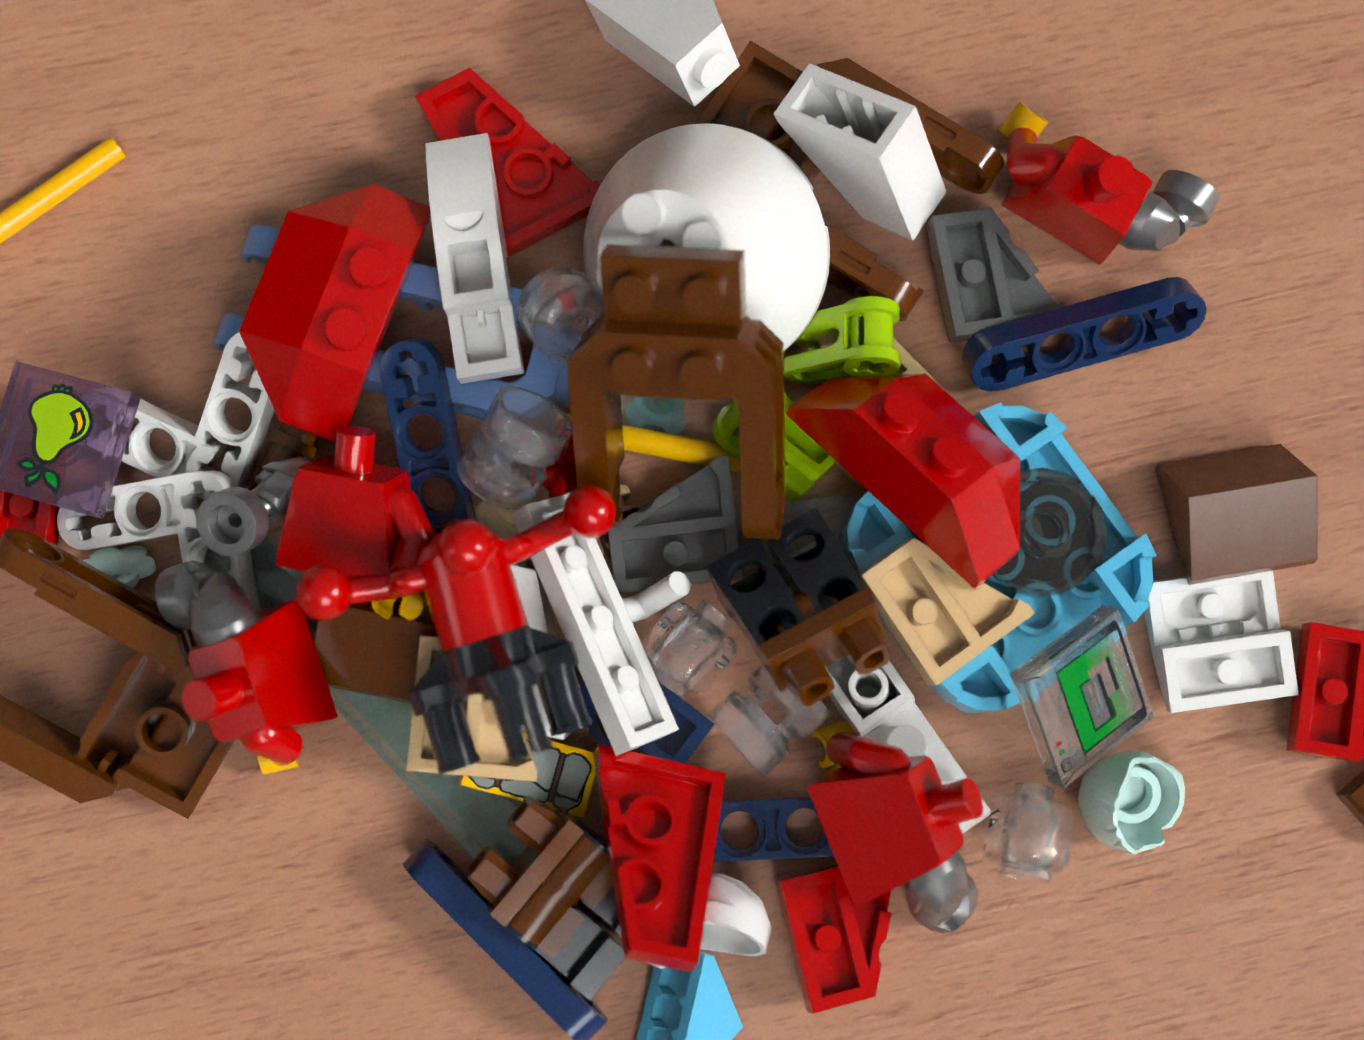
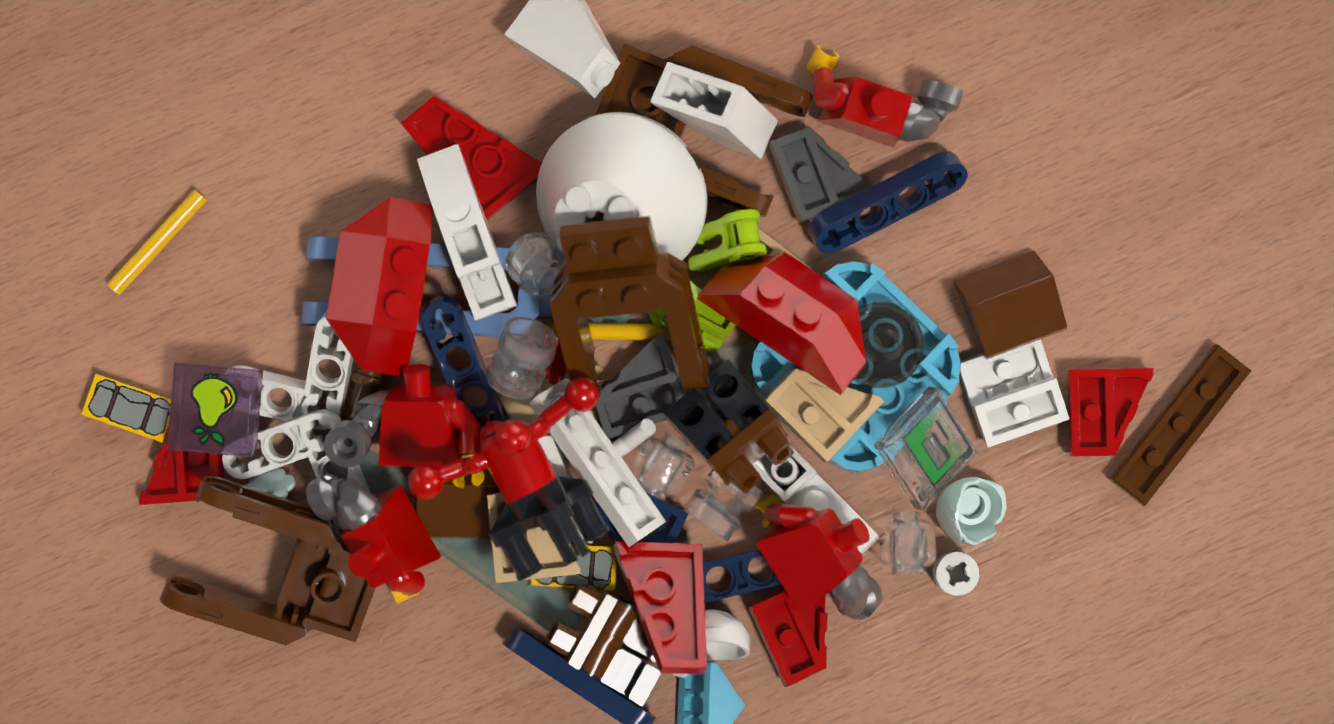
camera: 10 degrees left, 5 degrees up
(1081, 884) = (946, 575): none -> white wheel

